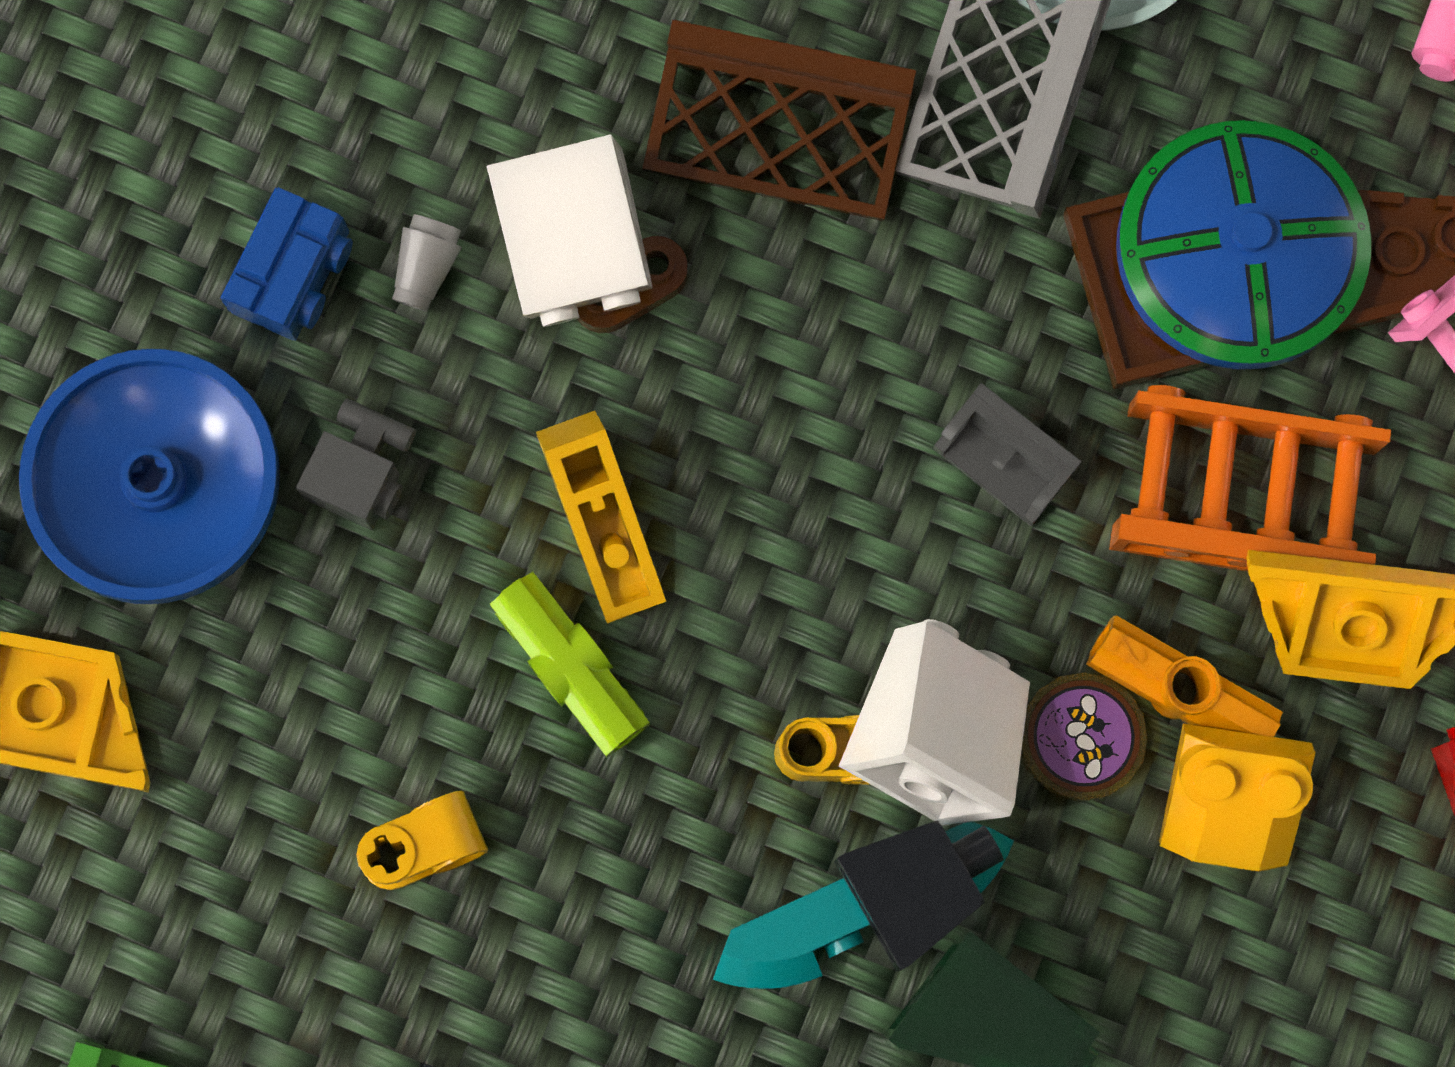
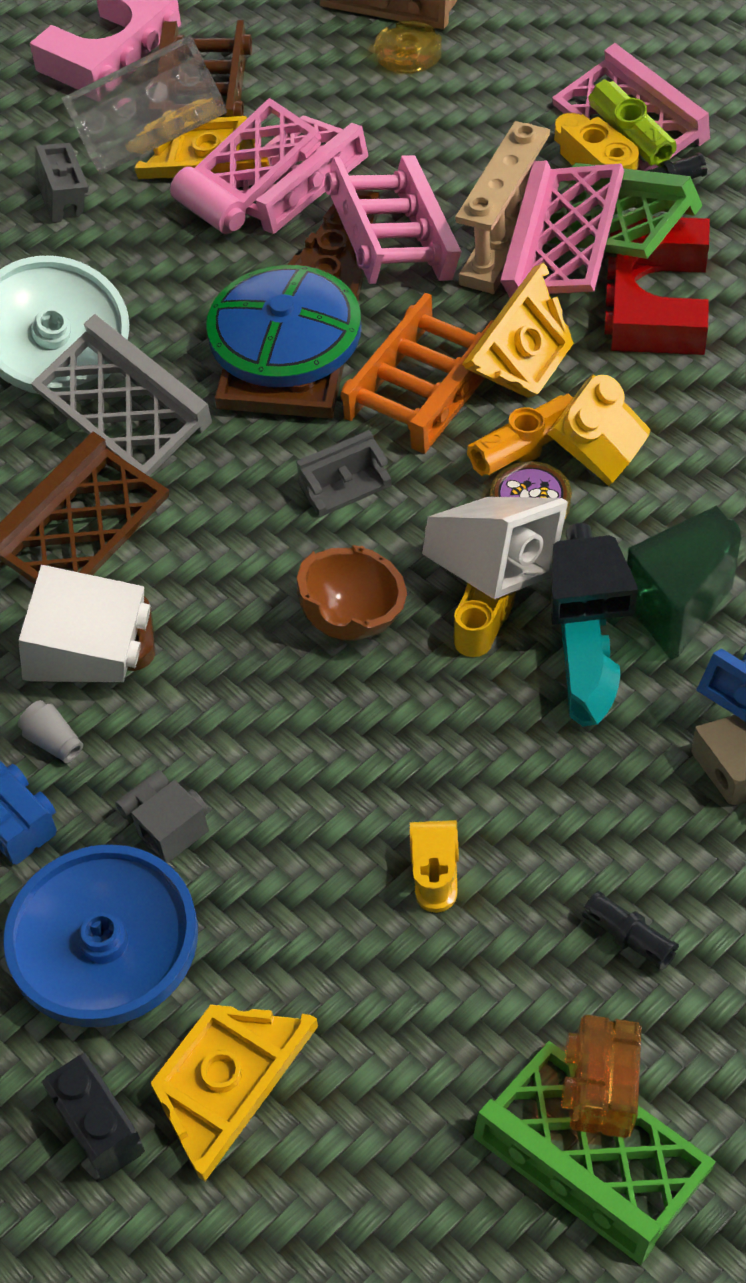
camera: 60 degrees left, 25 degrees down
(569, 664) = (357, 737): lime piece -> none
(601, 516) = (266, 686): yellow slope -> none
(783, 560) = (350, 592): none -> dark orange cylinder

